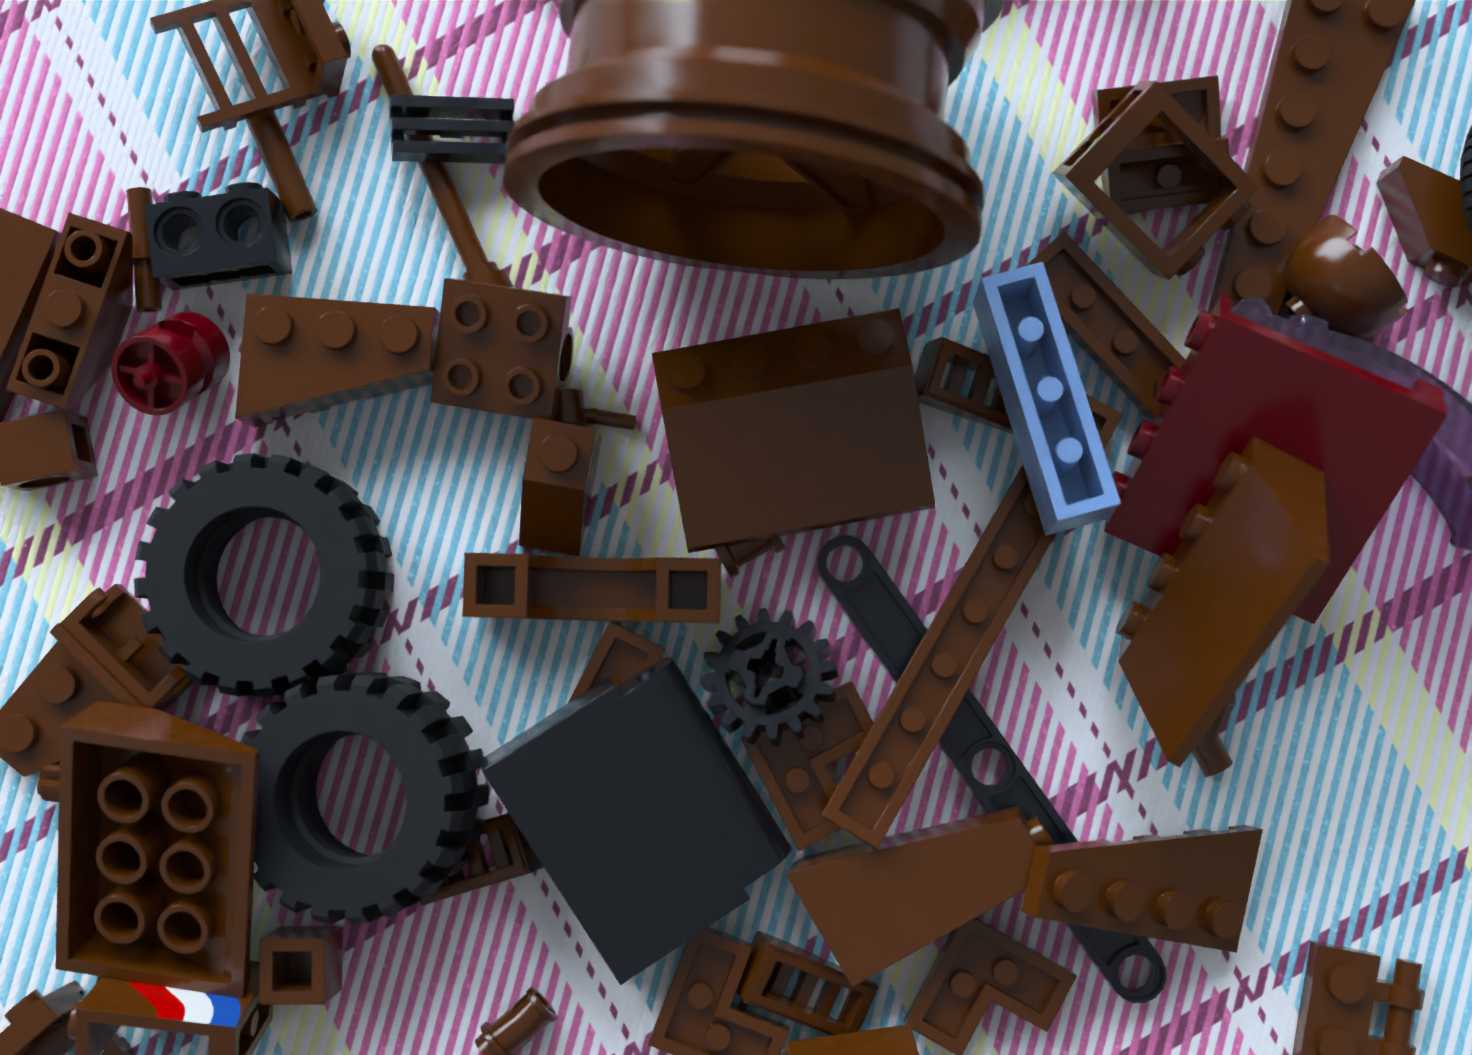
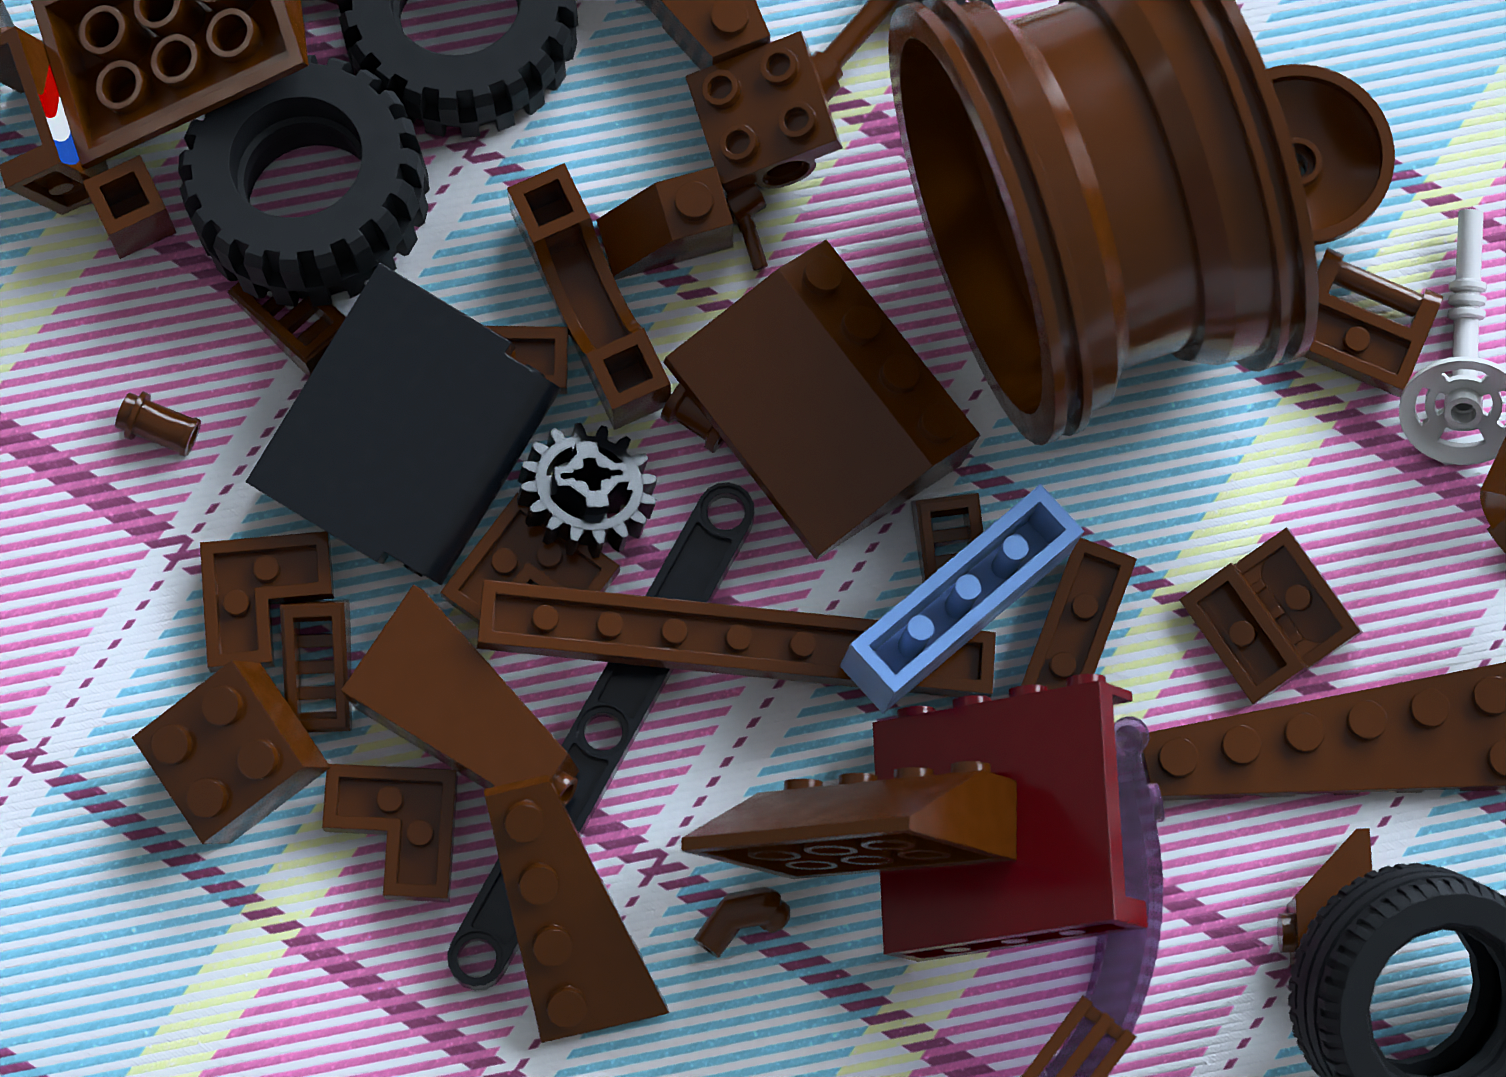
camera: 60 degrees right, 10 degrees down
(1113, 137) = (1240, 548): reddish brown window -> none
(1342, 282) = (1215, 829): reddish brown cylinder -> none

